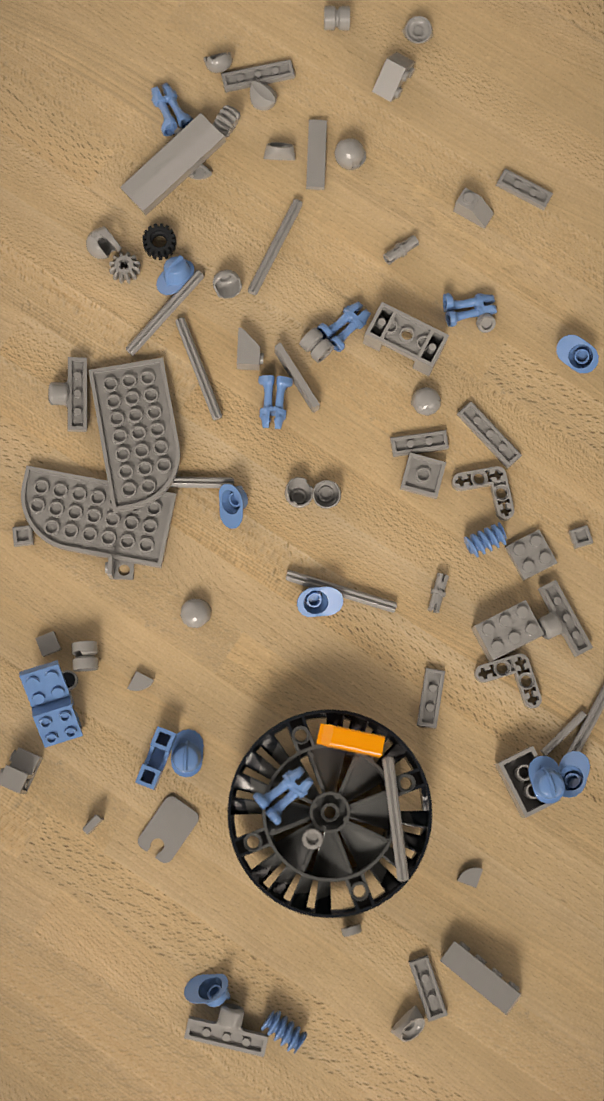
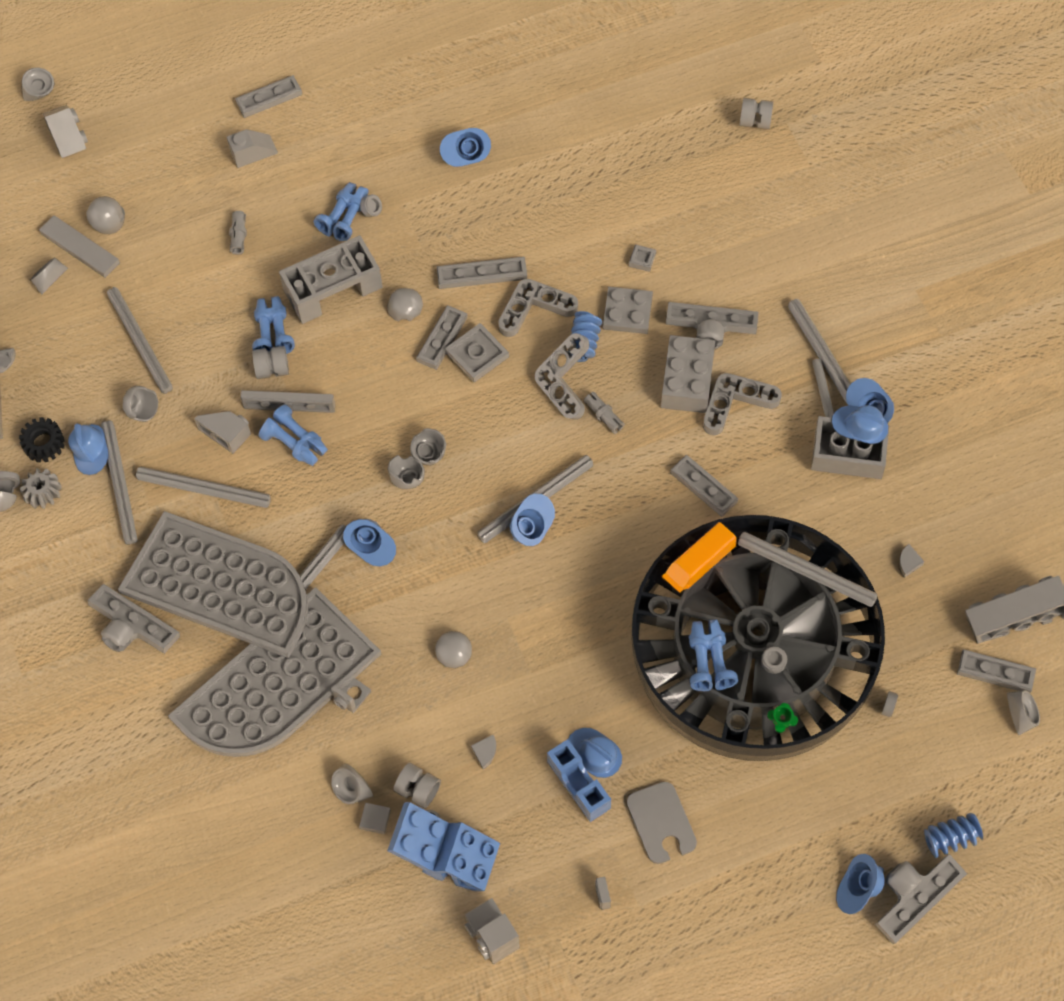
camera: 45 degrees left, 15 degrees down
(23, 536) = (239, 771): light grey tile -> none
(59, 612) = (350, 785): none -> light grey piece
(267, 873) = (782, 710): none -> green plate
(443, 540) = (556, 373): none -> light grey beam

